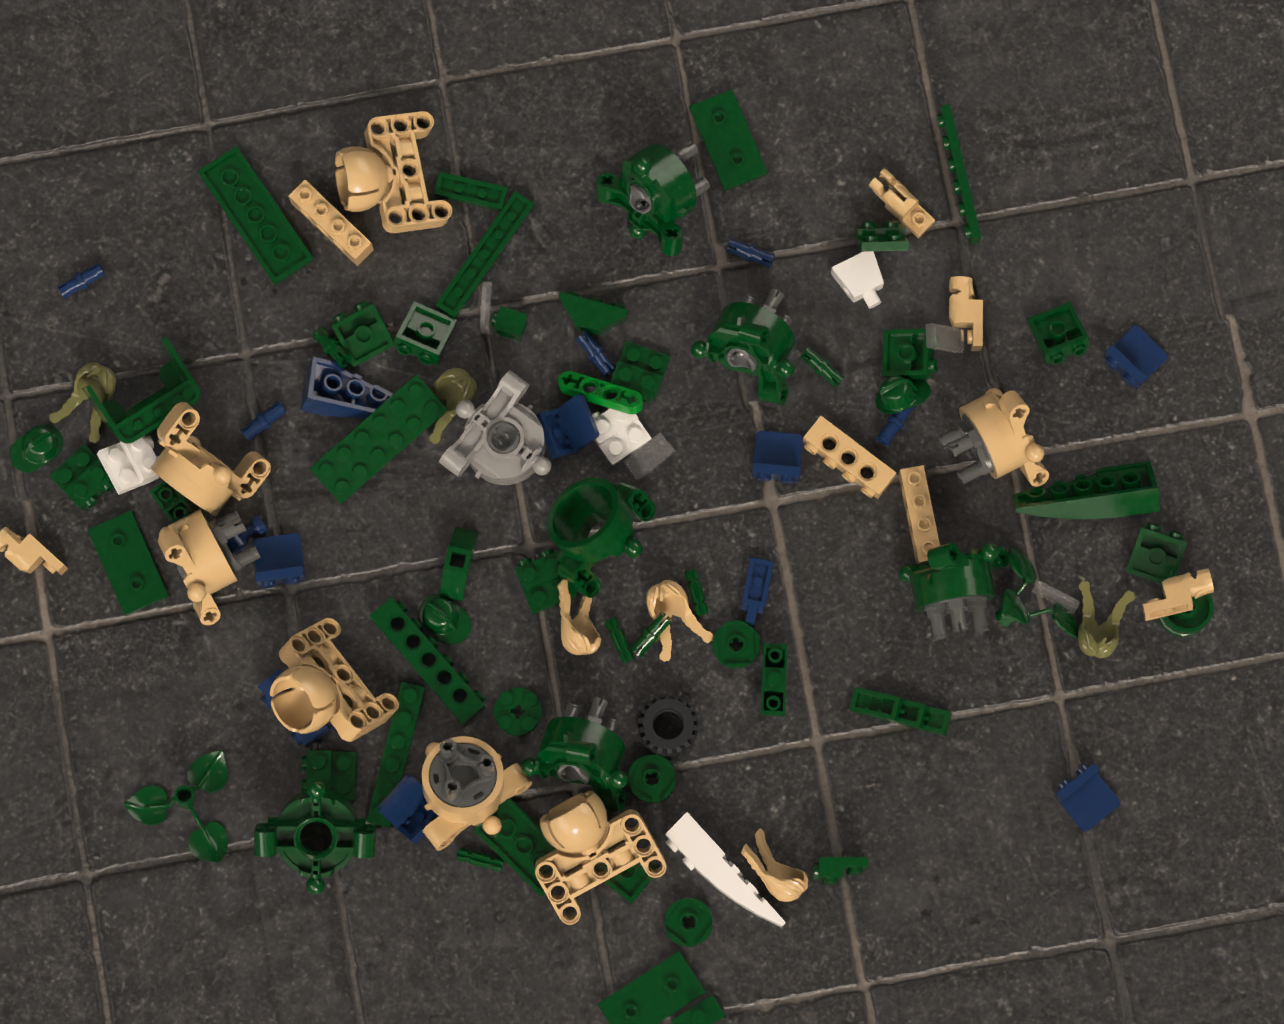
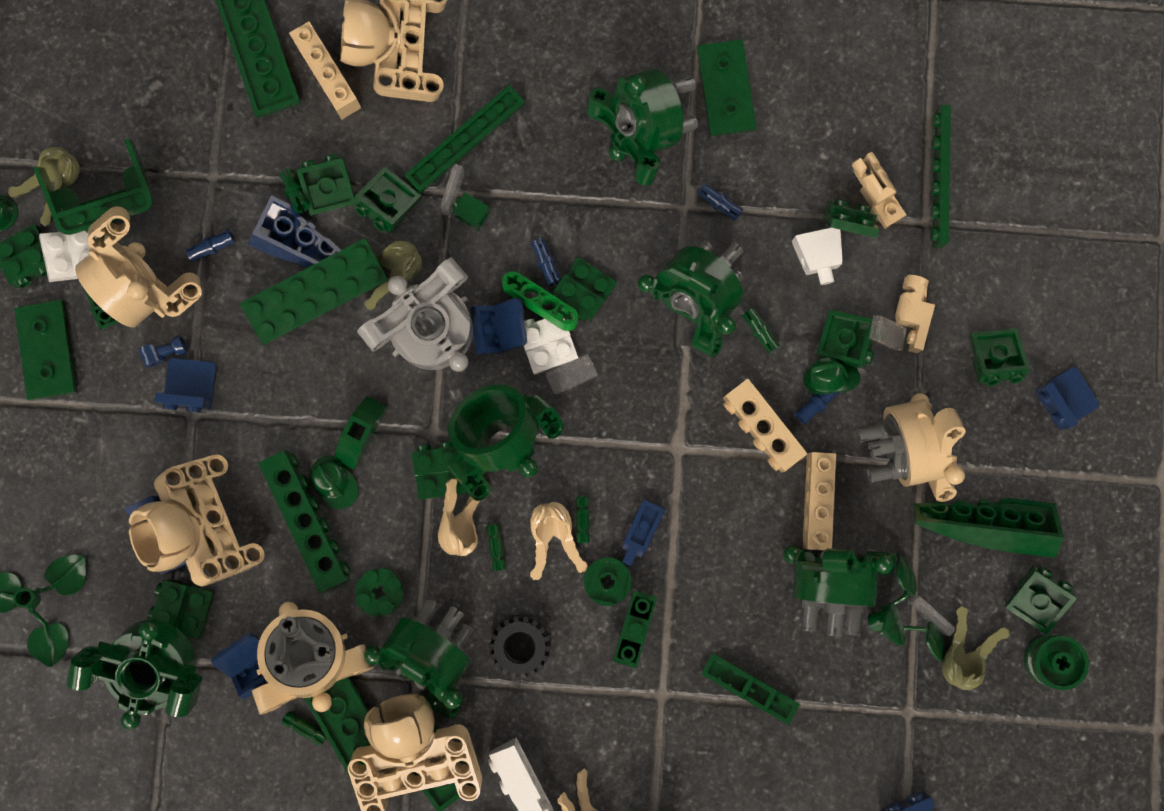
camera: 10 degrees right, 5 degrees up
(81, 280) = (74, 66): dark blue pin -> none
(204, 557) = (106, 366): tan piece -> none
(396, 748) = (254, 595): dark green plate -> none
(470, 191) = (467, 74): dark green plate -> none
(591, 313) = (552, 222): dark green slope -> none
(651, 634) = (527, 551): dark green pin -> none
(665, 775) = (477, 693): dark green plate -> none
(777, 457) = (695, 407): dark blue bracket -> none
(1178, 594) = (1061, 651): tan plate -> none

